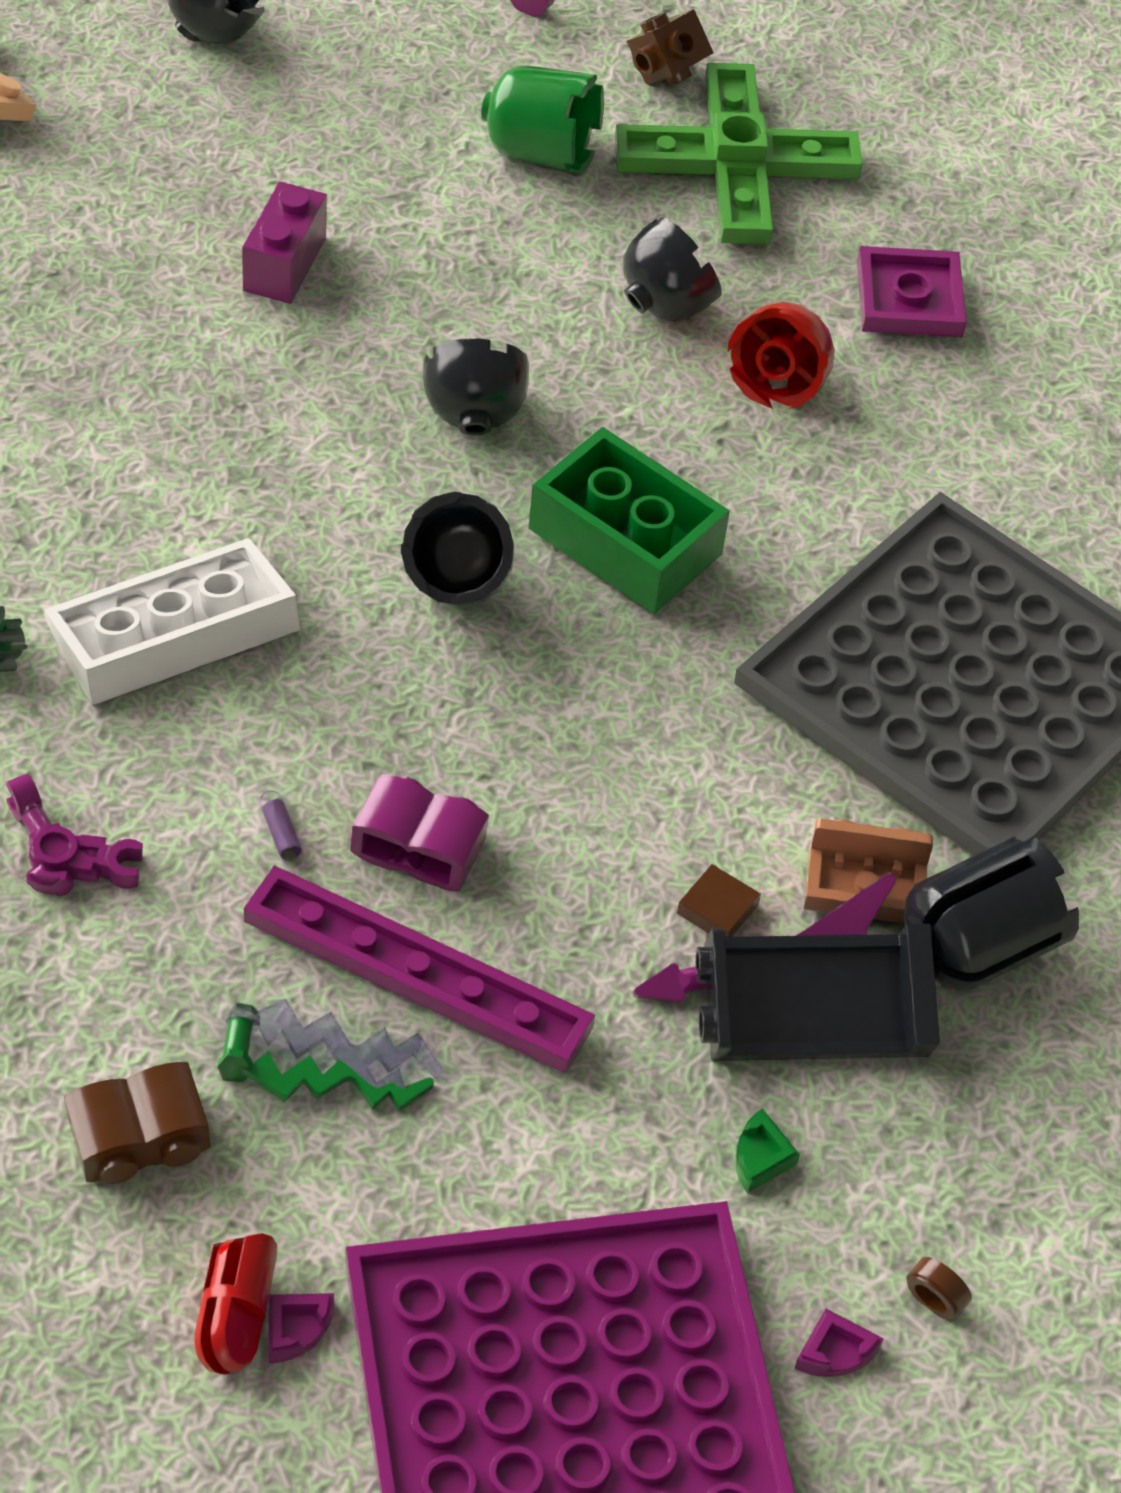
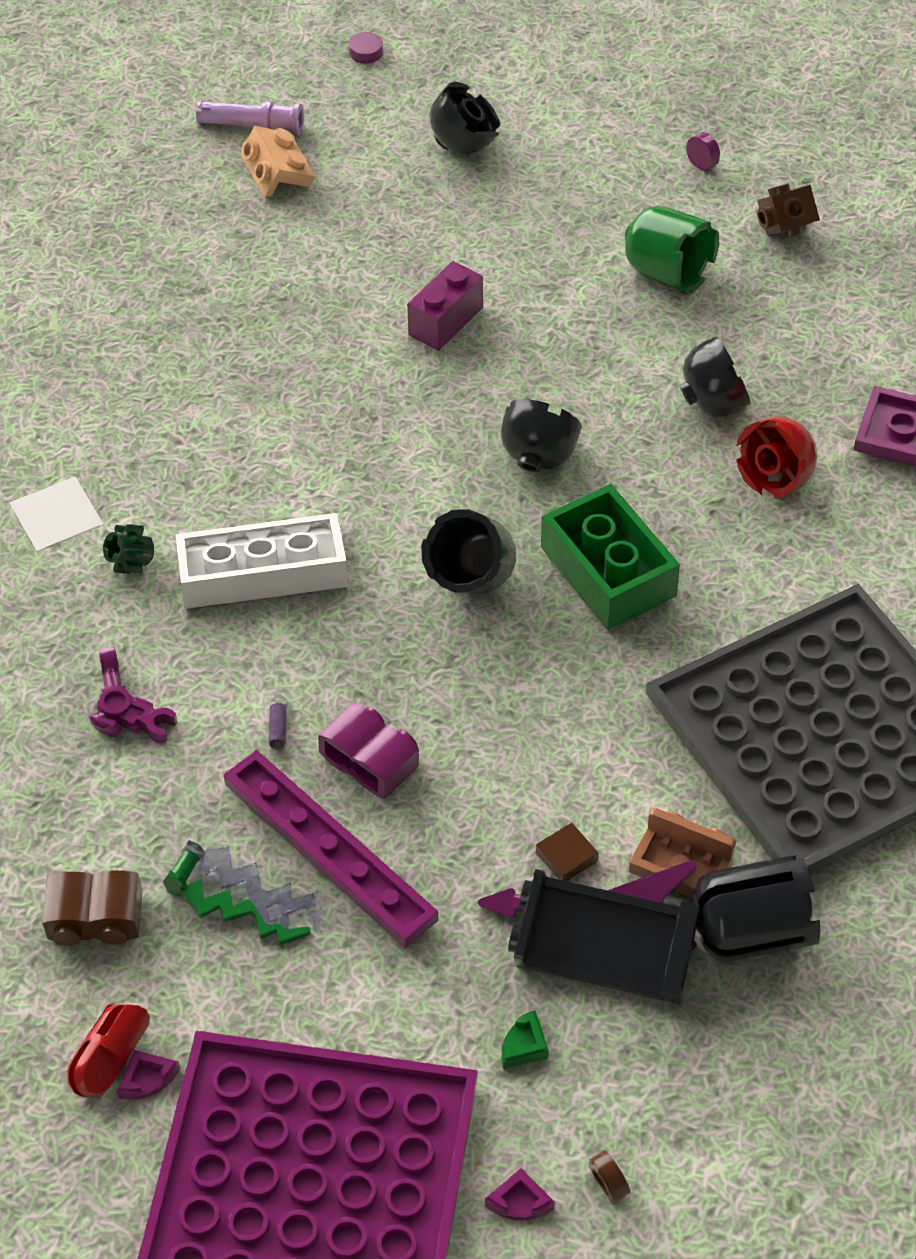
camera: 25 degrees right, 0 degrees up
(738, 152) = (811, 298): bright green piece -> none

